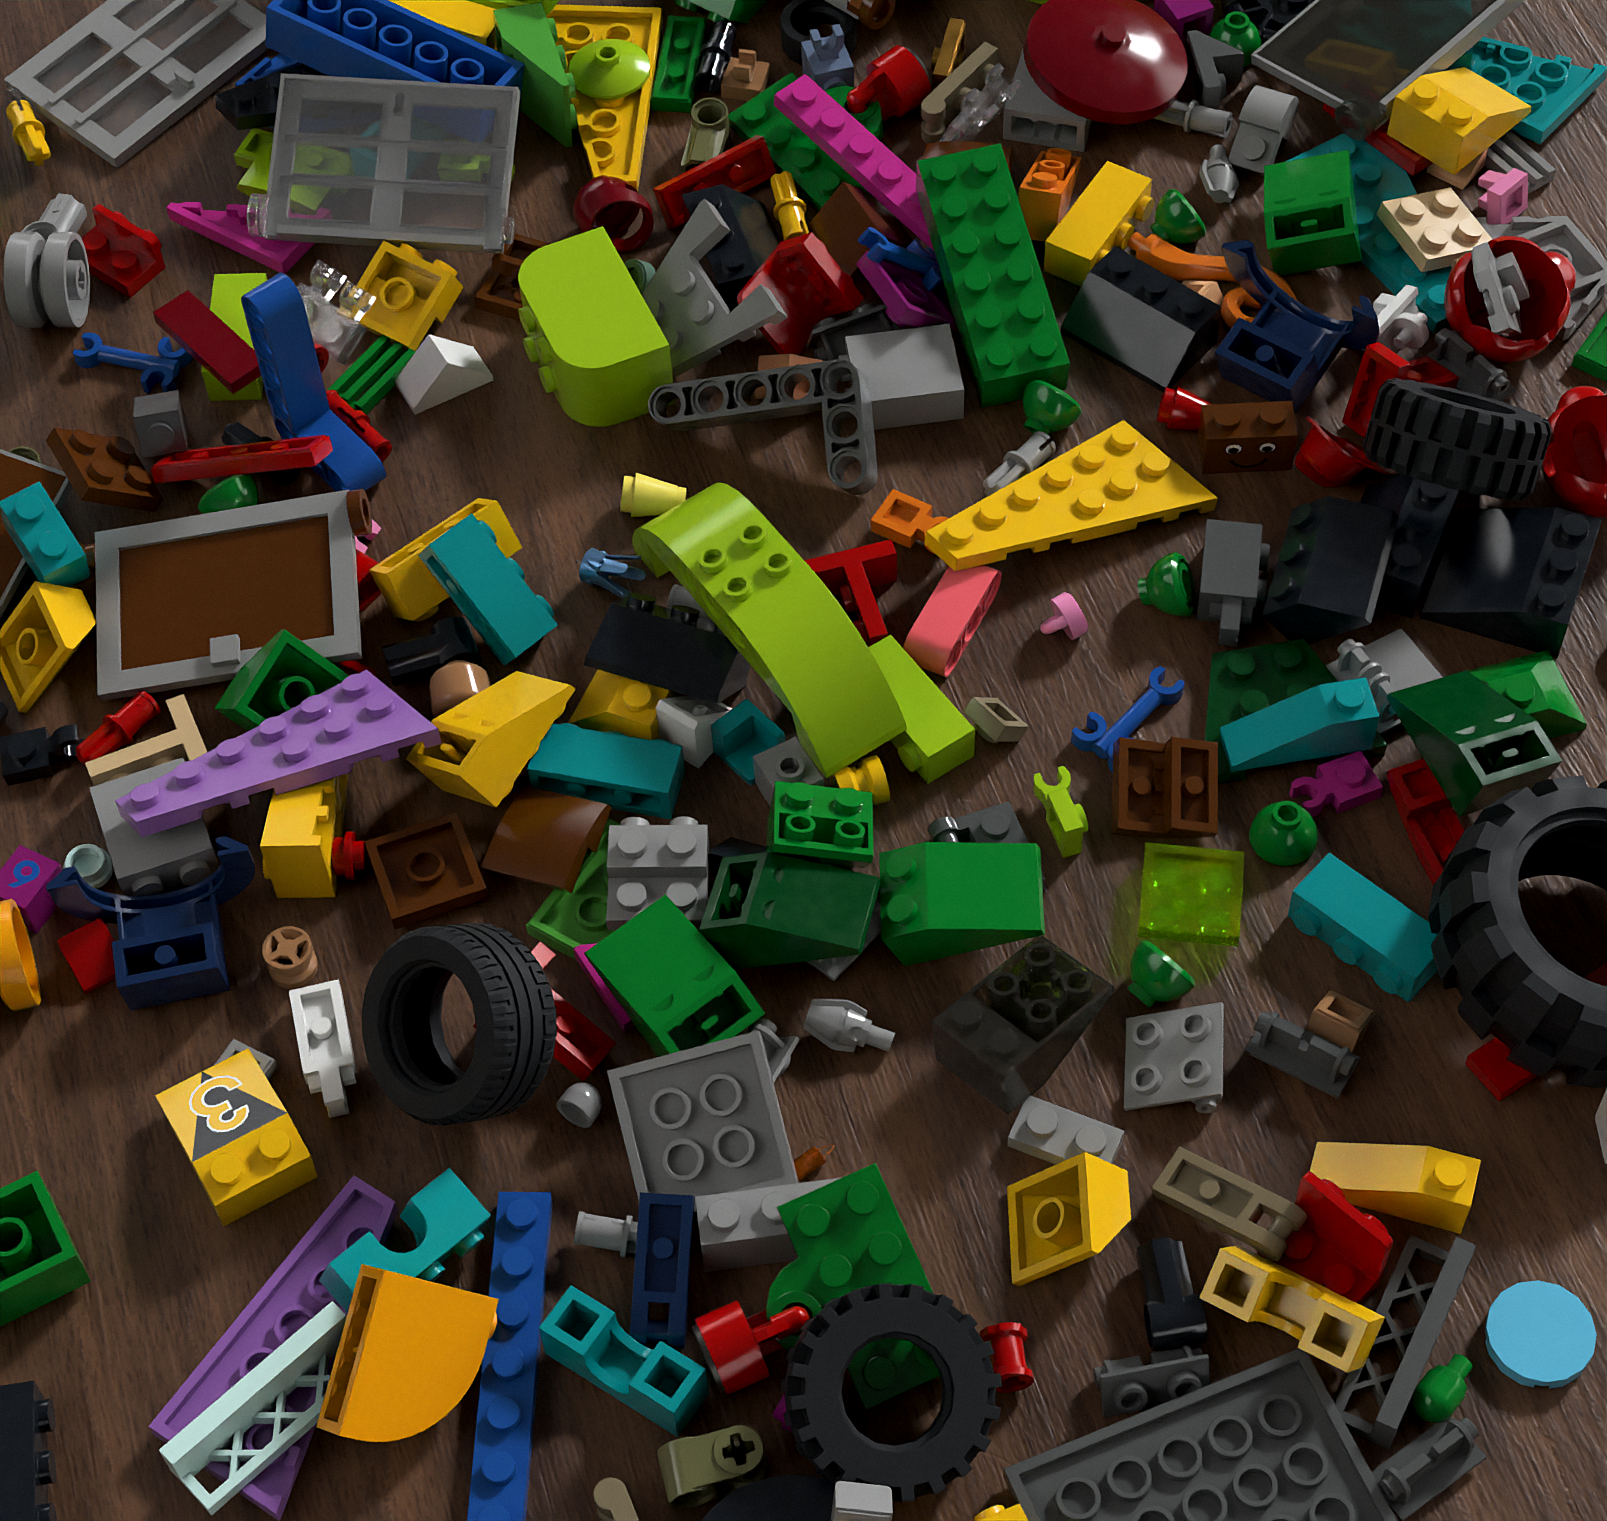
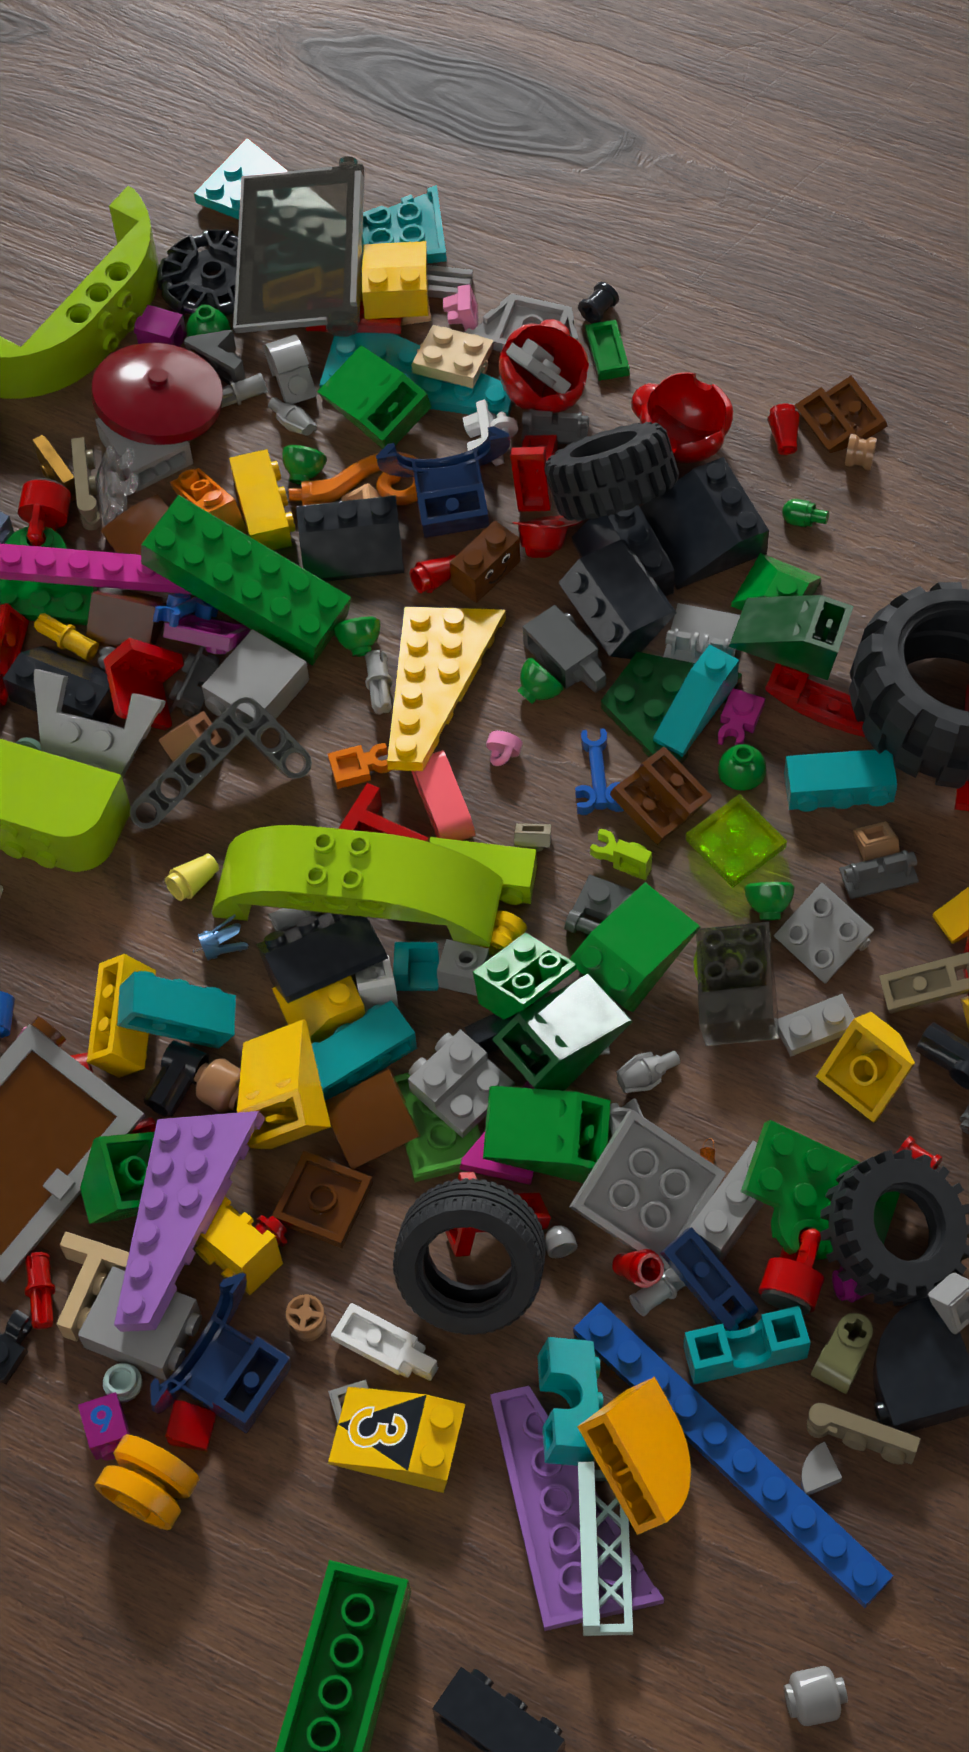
camera: 45 degrees left, 5 degrees up
(610, 1204) = (640, 1267): none -> red cone

